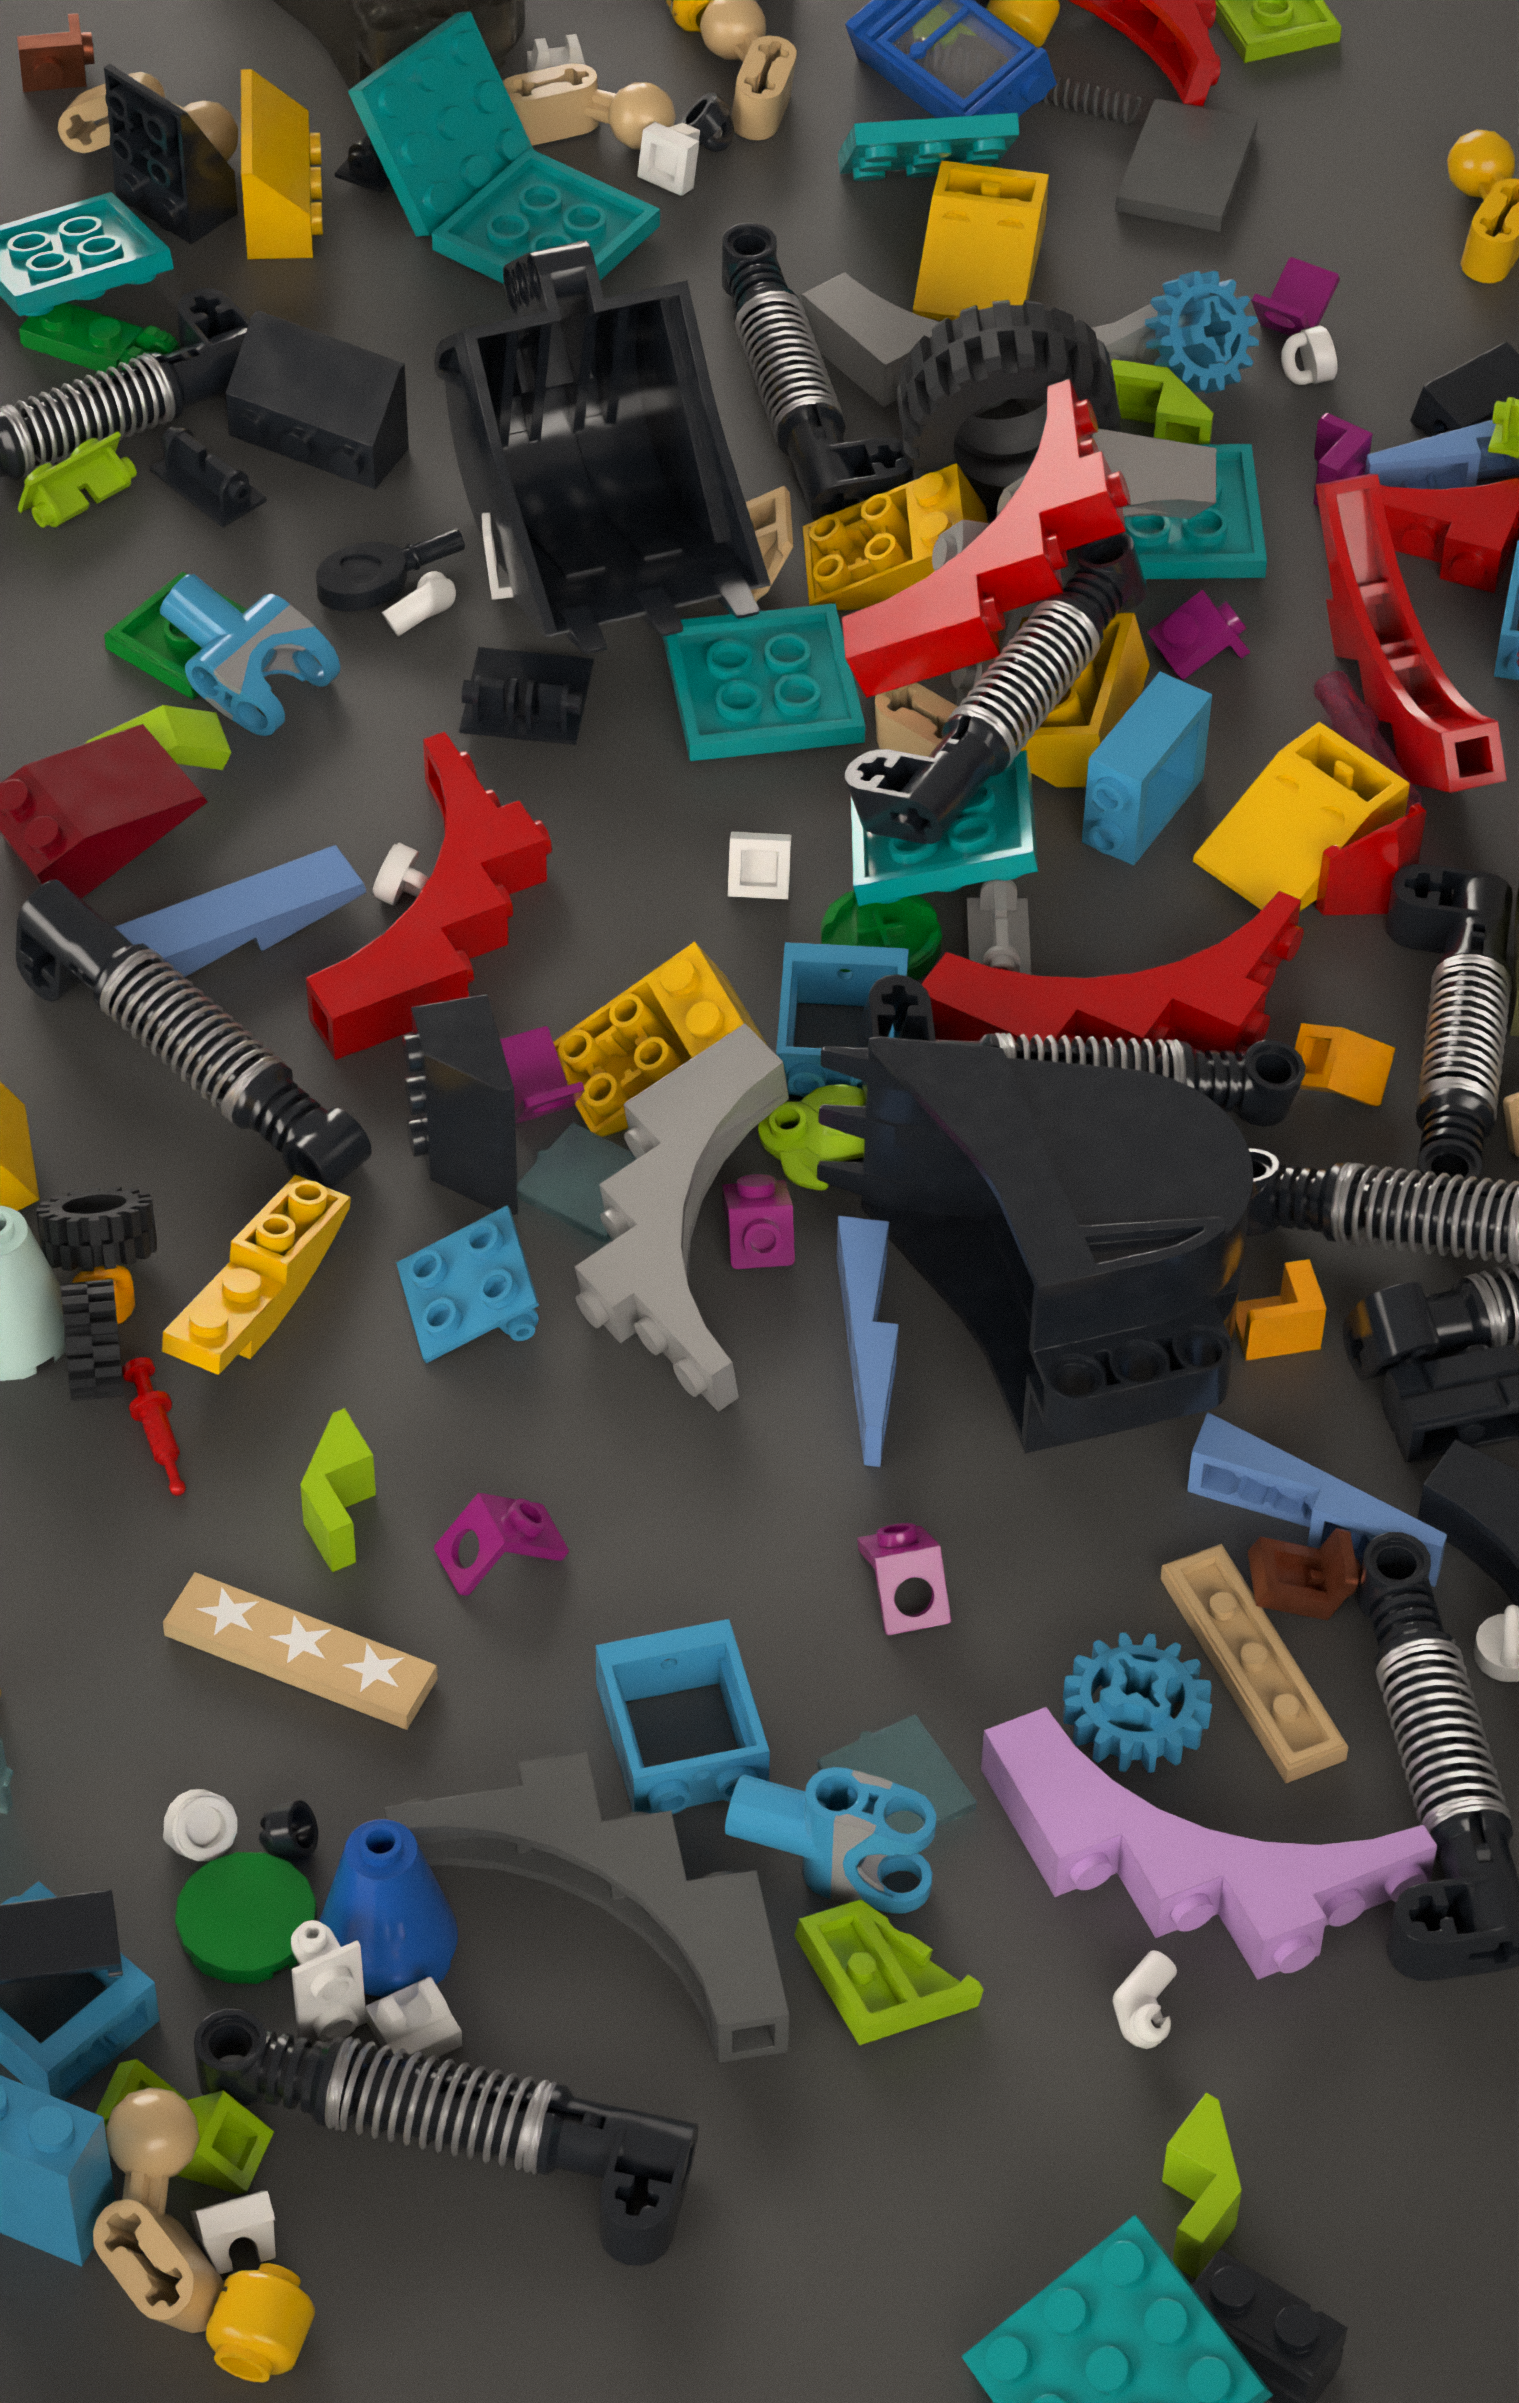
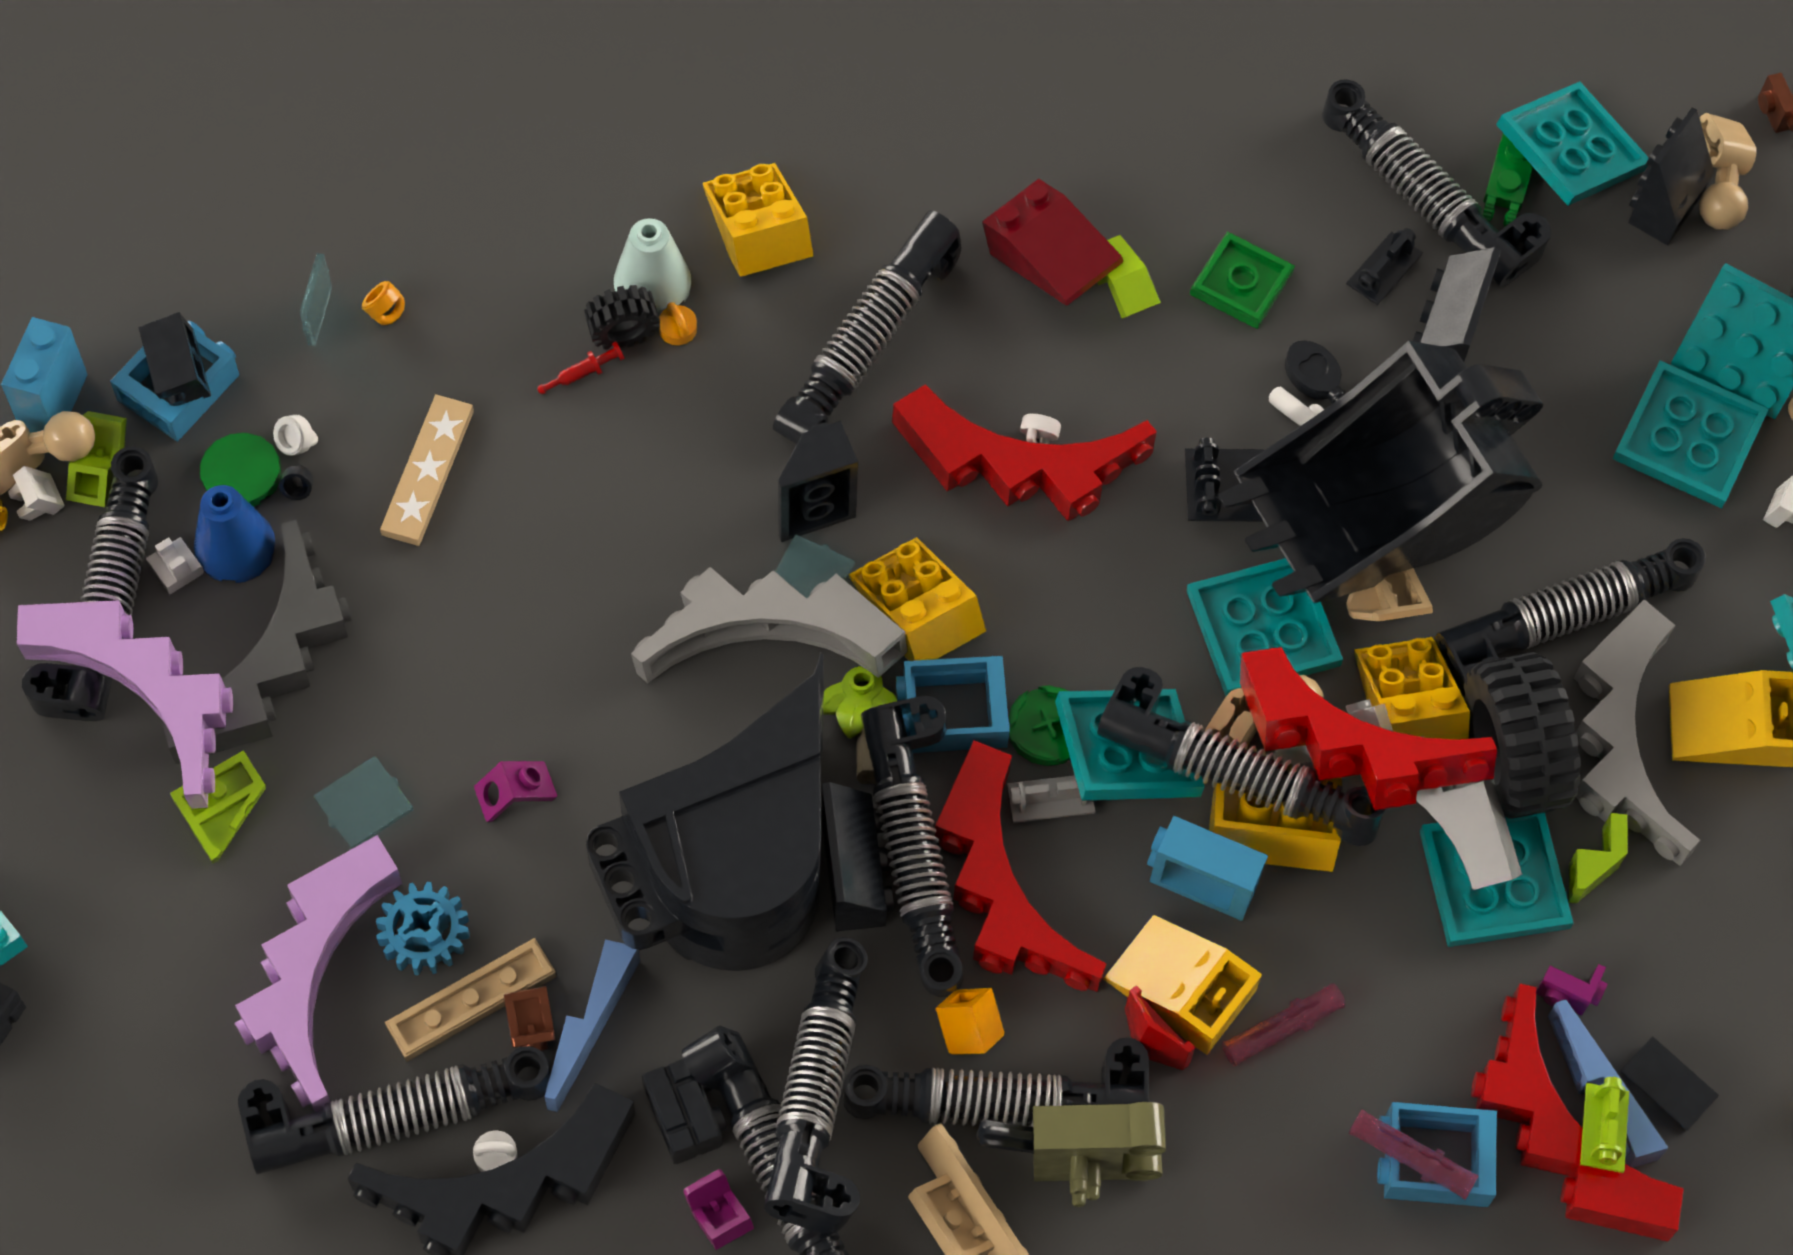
camera: 80 degrees right, 15 degrees up
(57, 488) = (1376, 198): lime hinge -> none
(97, 1228) = (699, 317): black tyre -> none
(245, 649) = (1218, 307): dark azure connector -> none
(255, 908) = (988, 342): medium blue slope -> none
(263, 1279) = (692, 404): yellow slope -> none
(278, 172) = (1689, 248): yellow slope -> none
(326, 1983) = (174, 504): white hinge -> none
(335, 1479) = (553, 466): lime slope -> none
(470, 1286) = (706, 517): dark azure hinge -> none
(501, 1527) = (517, 565): magenta bracket -> none
(537, 1075) = (877, 531): magenta bracket -> none
(663, 2004) = (102, 639): none -> lavender arch
(698, 1658) = (375, 644): dark azure window -> none
(759, 865) = (1088, 641): white tile -> none
(759, 1222) = (780, 672): magenta bracket -> none
(840, 1833) = (293, 761): dark azure connector -> none
(871, 1344) = (673, 749): medium blue slope -> none
(1137, 2002) = (212, 948): white arm -> none
(1198, 633) = (1371, 904): magenta bracket -> none
(1202, 331) = (1662, 860): dark azure gear -> none
(1204, 2170) = (93, 991): lime slope -> none
(1286, 1321) = (746, 996): light orange panel -> none
(1297, 298) = (1742, 947): magenta bracket -> none
(1316, 353) = (1688, 965): white tile -> none
(1372, 620) = (1338, 1037): red arch -> none

